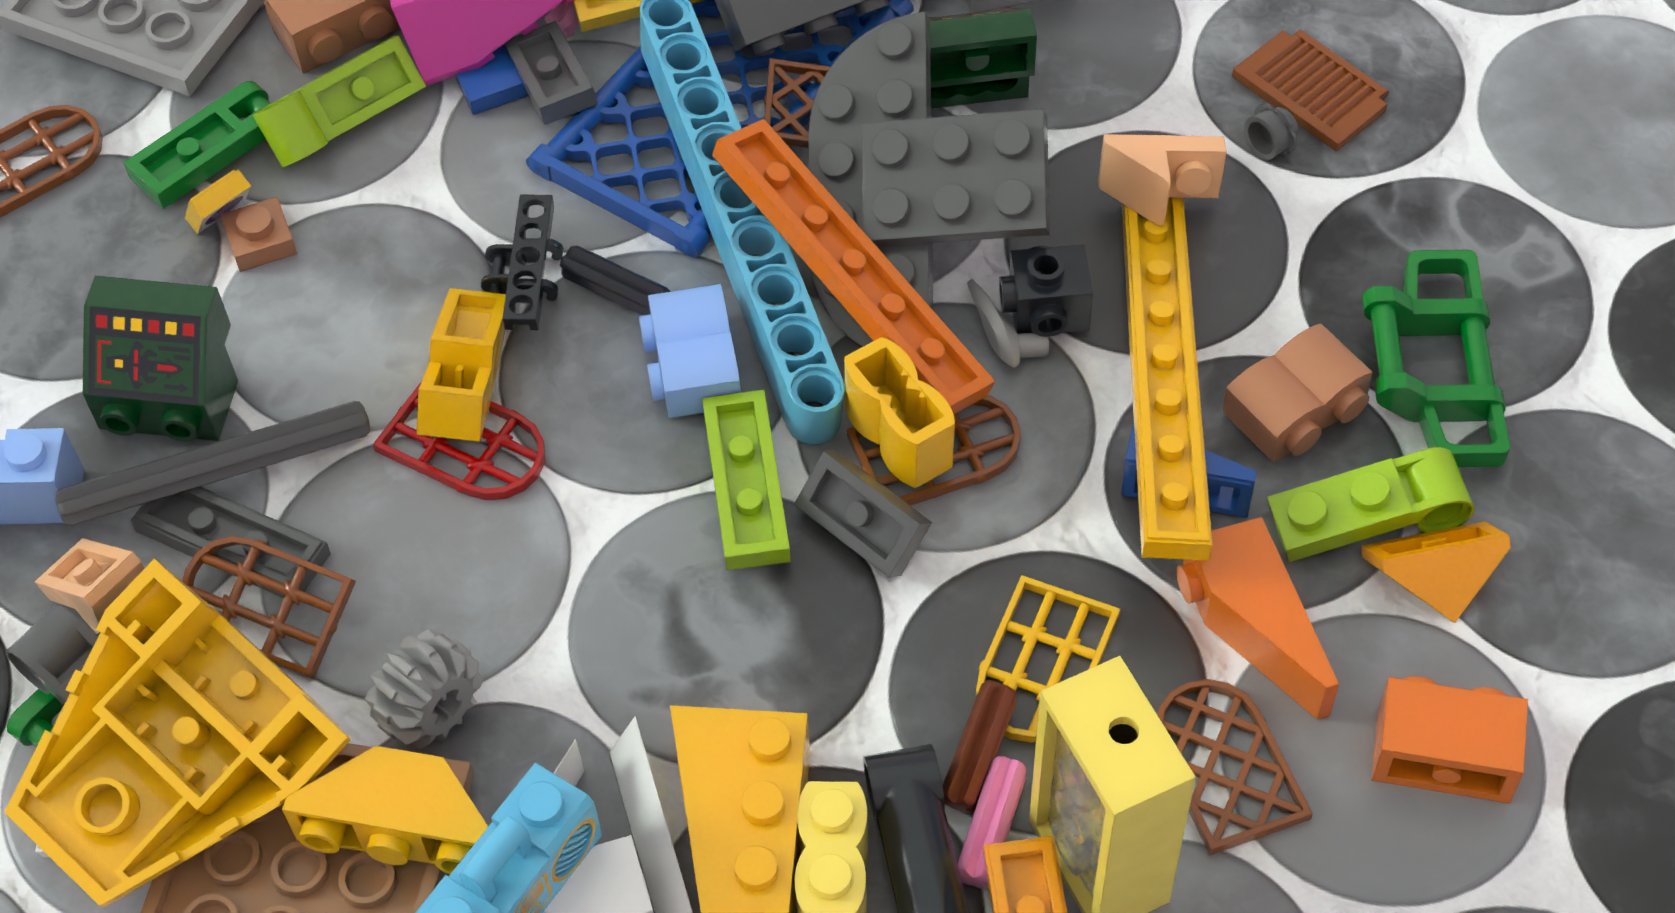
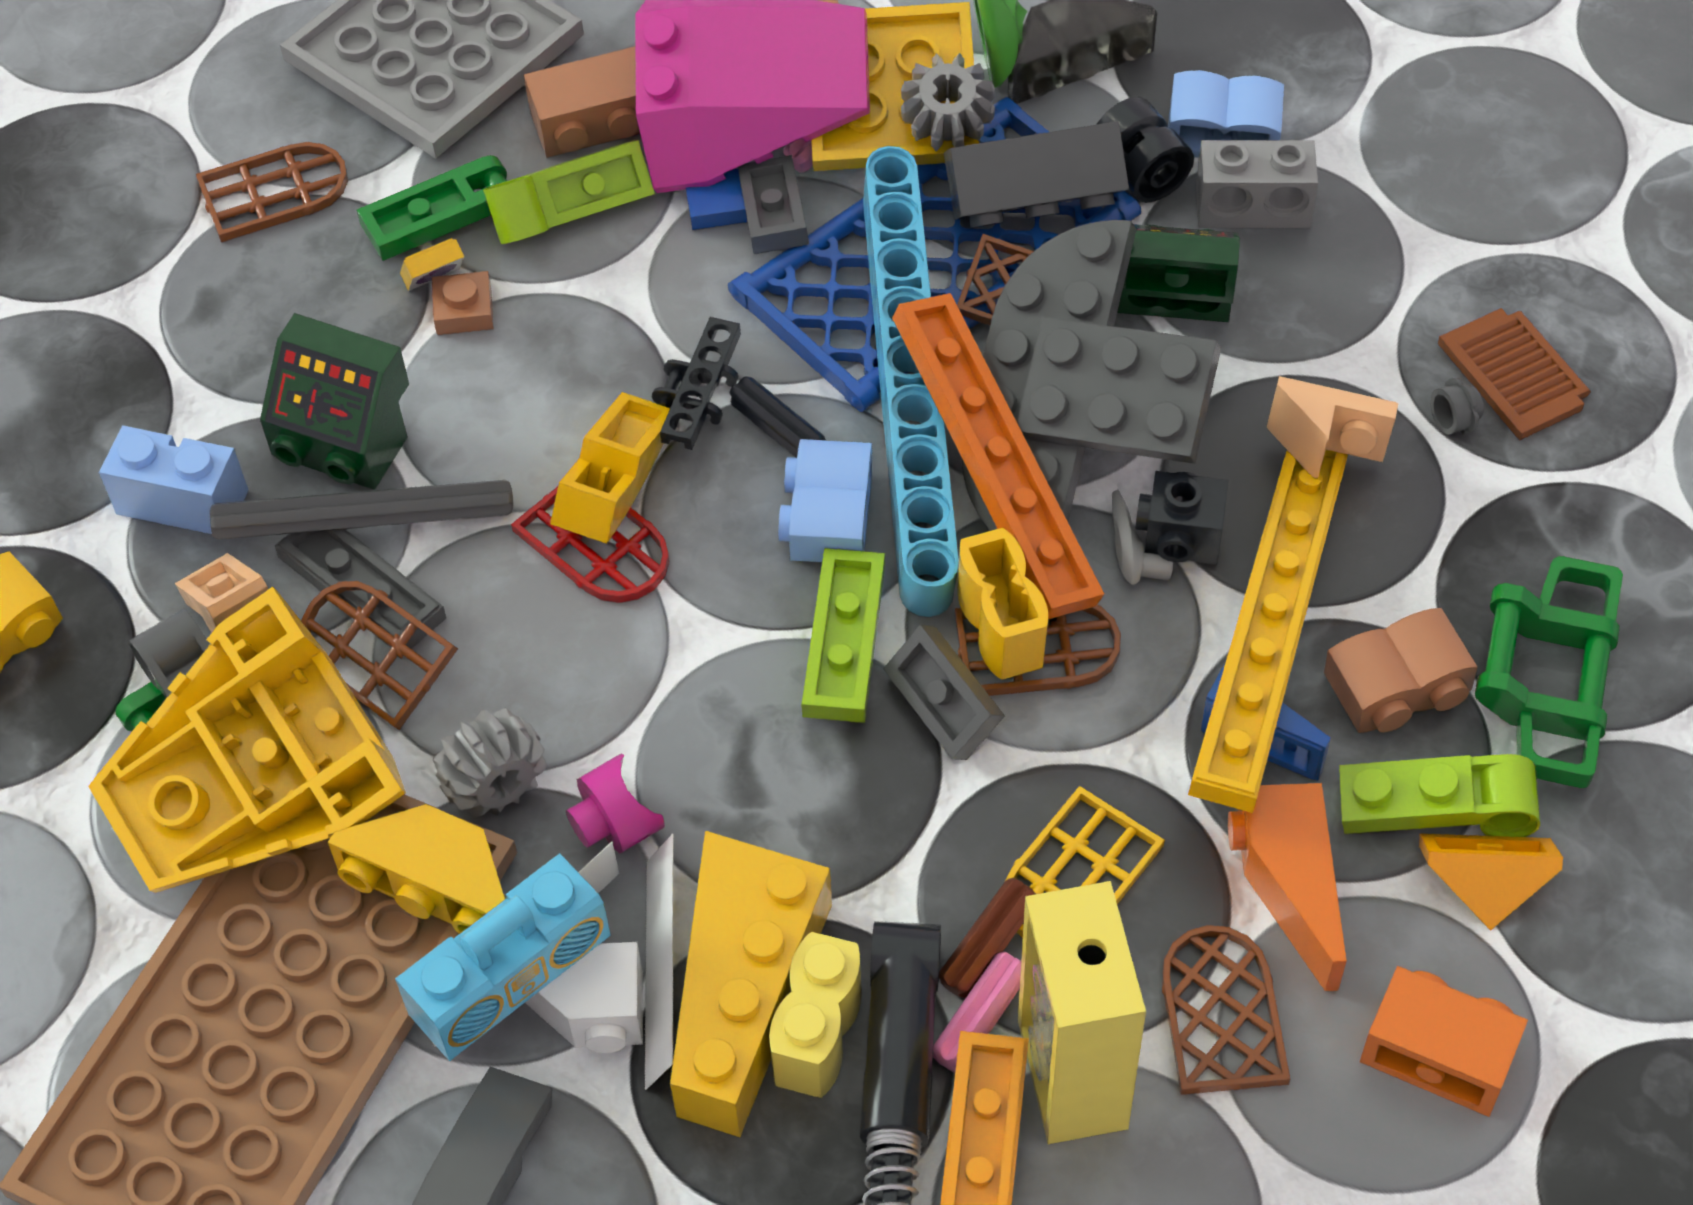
camera: 15 degrees right, 0 degrees up
(562, 707) = (611, 810): none -> dark pink piece

